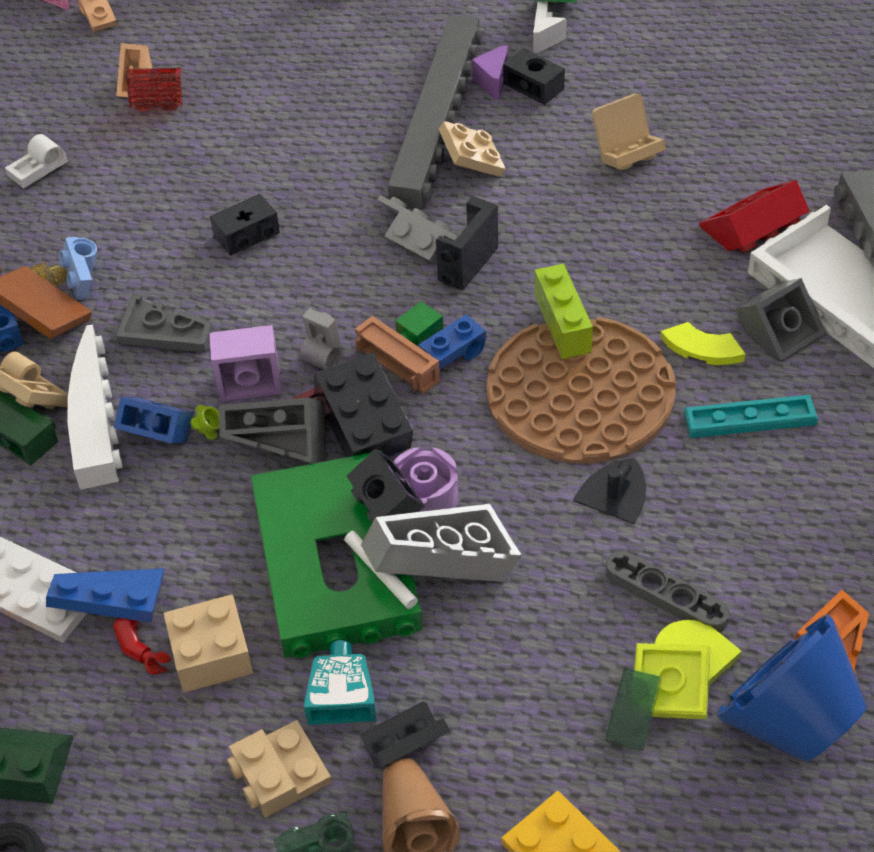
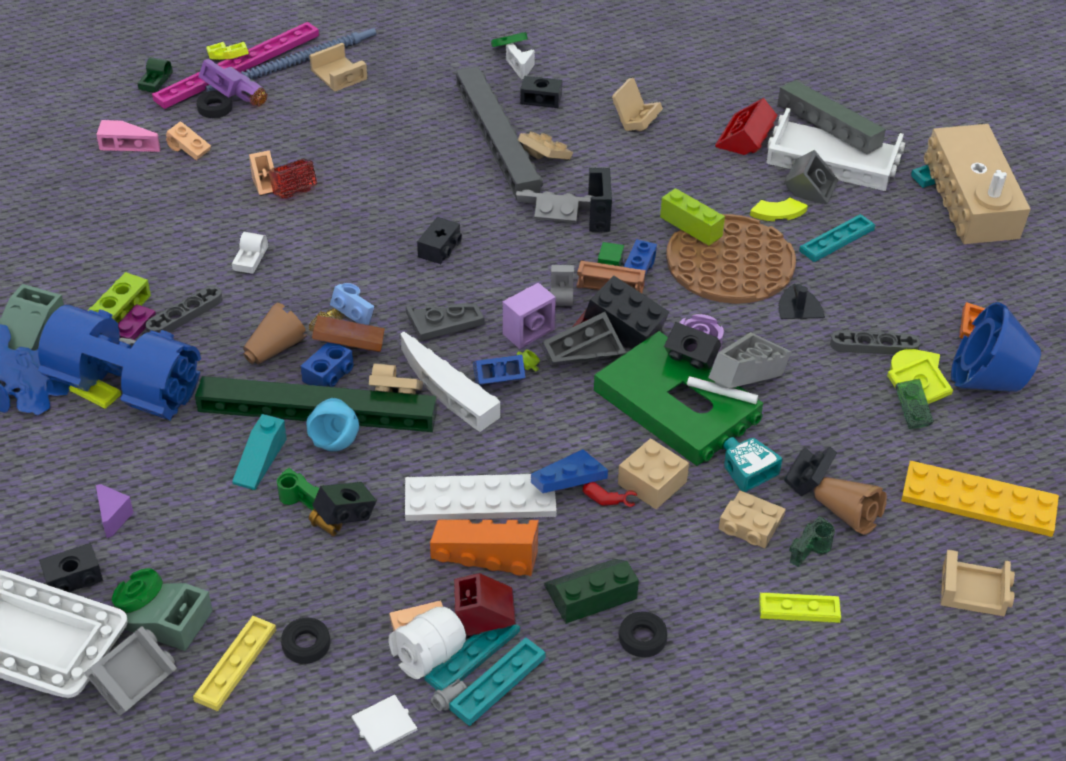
camera: 35 degrees left, 5 degrees down
(488, 70) = (511, 97): medium lavender slope -> none

